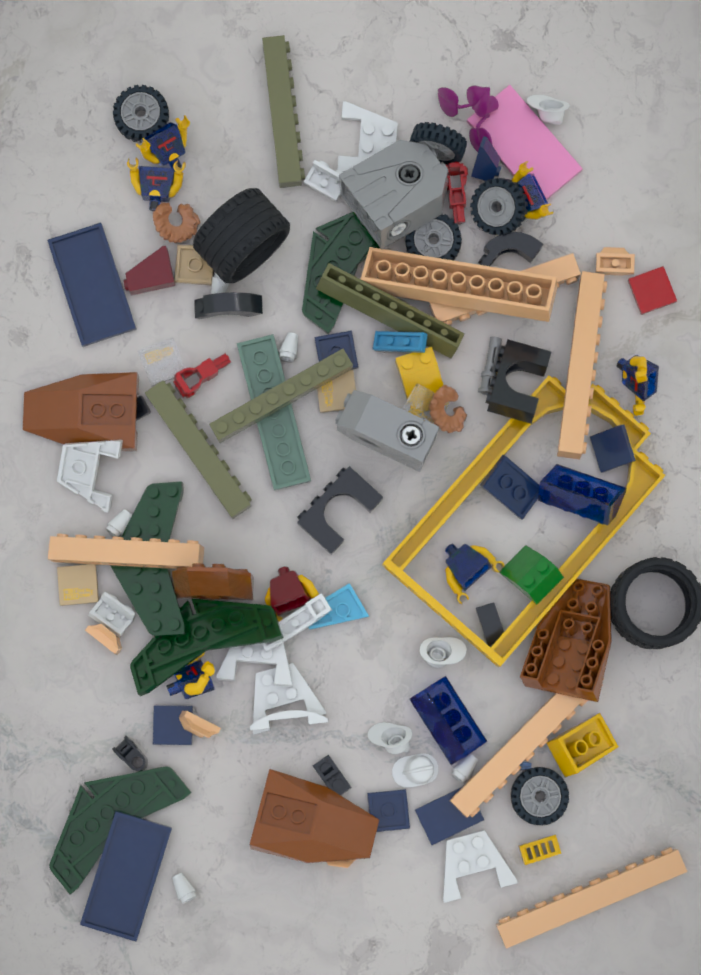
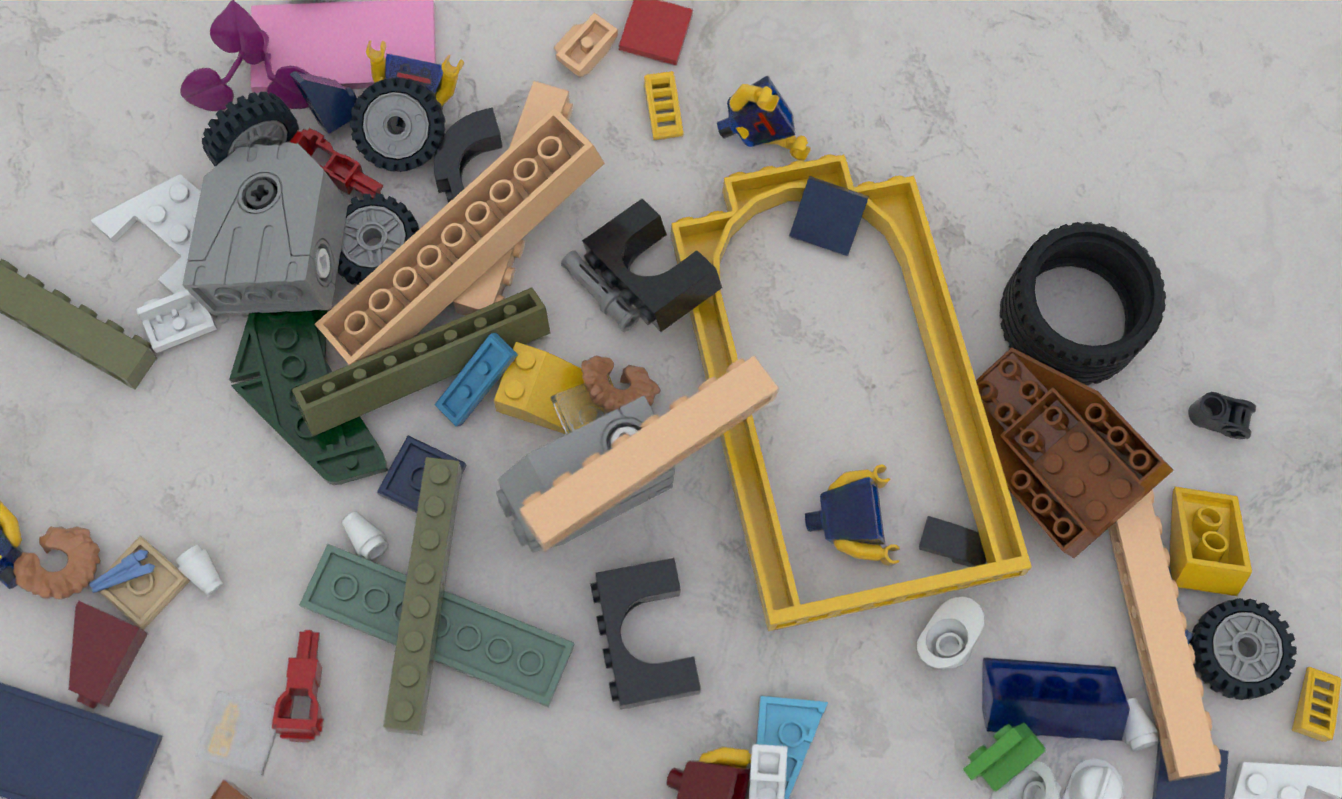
camera: 60 degrees left, 10 degrees down
(191, 253) = (127, 570): none -> medium blue piece
(198, 450) = (405, 773): olive brick -> none
(228, 304) = (232, 575): black arch -> none
(241, 235) = (151, 478): black tyre -> none
(333, 394) = (479, 518): tan tile -> none
(403, 715) = (1007, 757): none -> bright green bracket
(412, 449) = (647, 453): none -> light nougat brick
(511, 487) = (798, 373): dark blue tile -> none
(532, 574) = (927, 434): green slope -> none
(581, 365) = (693, 174): light nougat brick -> none
(581, 494) = (864, 295): clear blue slope -> none
(624, 314) = (660, 86): none -> yellow slope
(656, 714) = (1228, 415): none -> black piece

